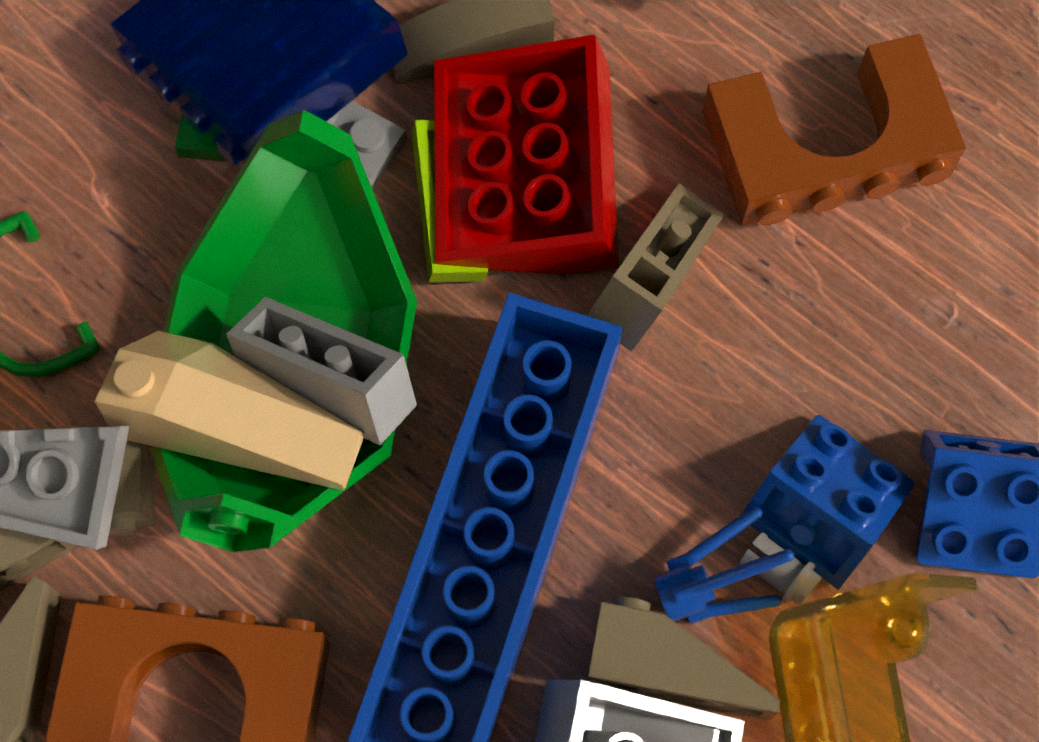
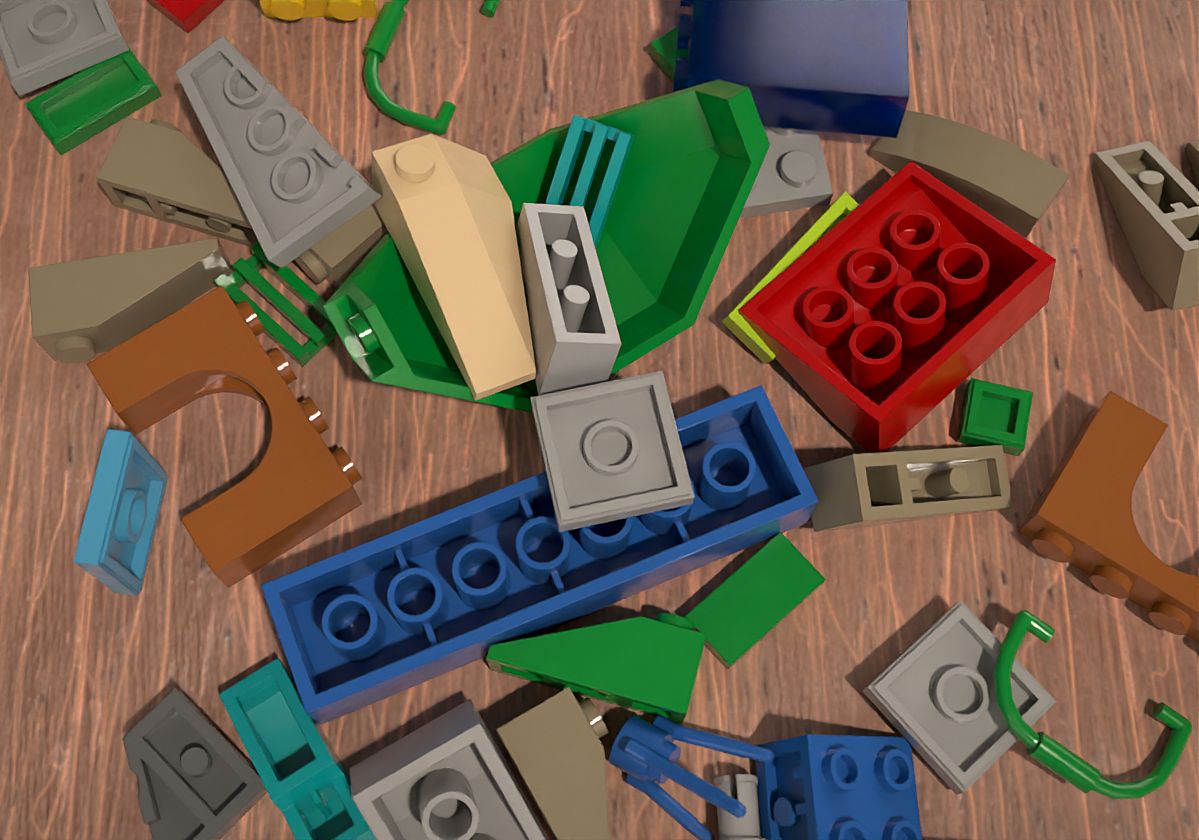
camera: 45 degrees right, 0 degrees up
(71, 578) = (248, 272): none -> green tile
(222, 237) = (567, 160): none -> teal tile
(468, 428) = (611, 451): none -> light grey plate
(616, 550) = (620, 662): none -> green slope
(642, 432) = (755, 600): none -> green tile
(654, 170) = (995, 416): none -> green tile
(819, 358) = (946, 700): none -> light grey plate
(905, 333) = (1058, 757): none -> green piece

